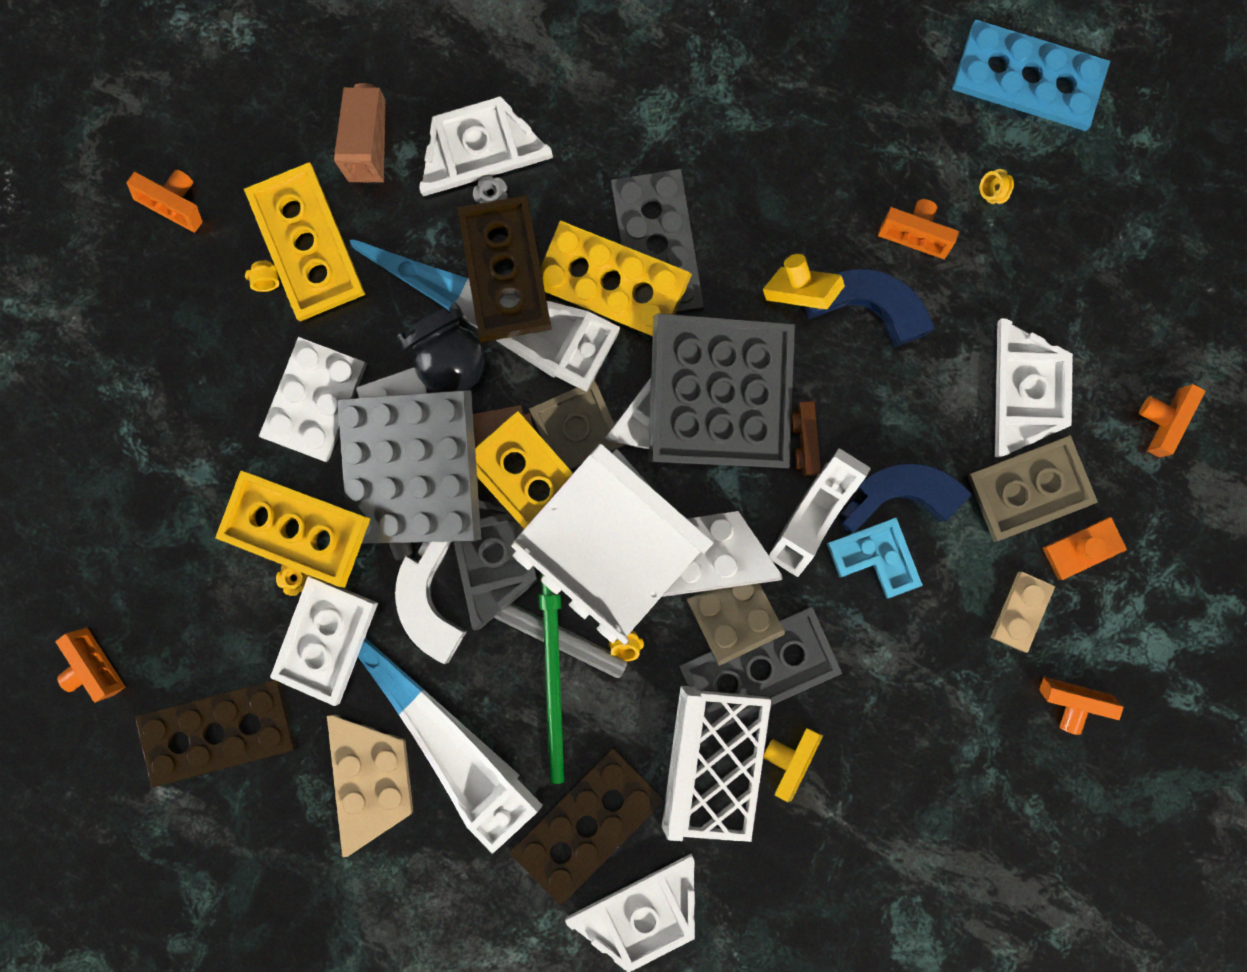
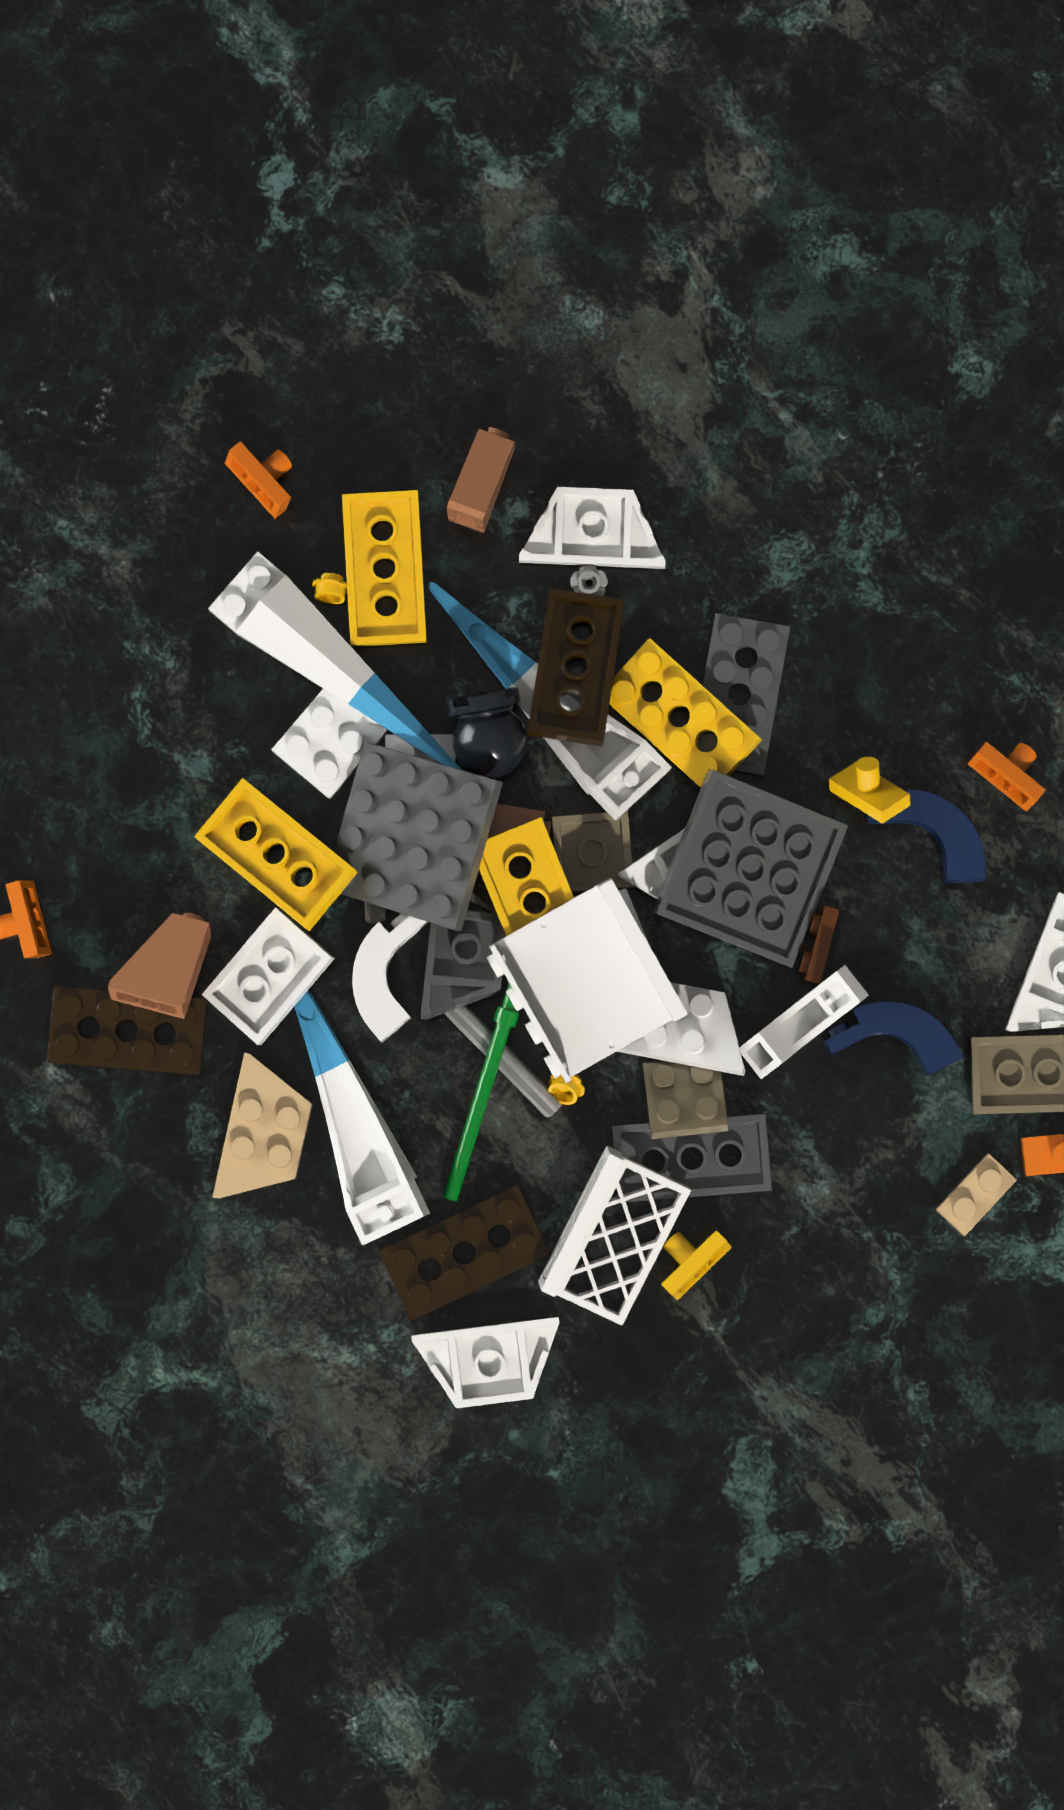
camera: 20 degrees right, 0 degrees up
(226, 665) = (165, 967): none -> nougat slope
(229, 320) = (282, 622): none -> white plate
(284, 580) = (251, 912): yellow plate -> none
(885, 550) = (859, 1082): medium azure plate -> none
(1078, 703) = (997, 1303): orange tile -> none

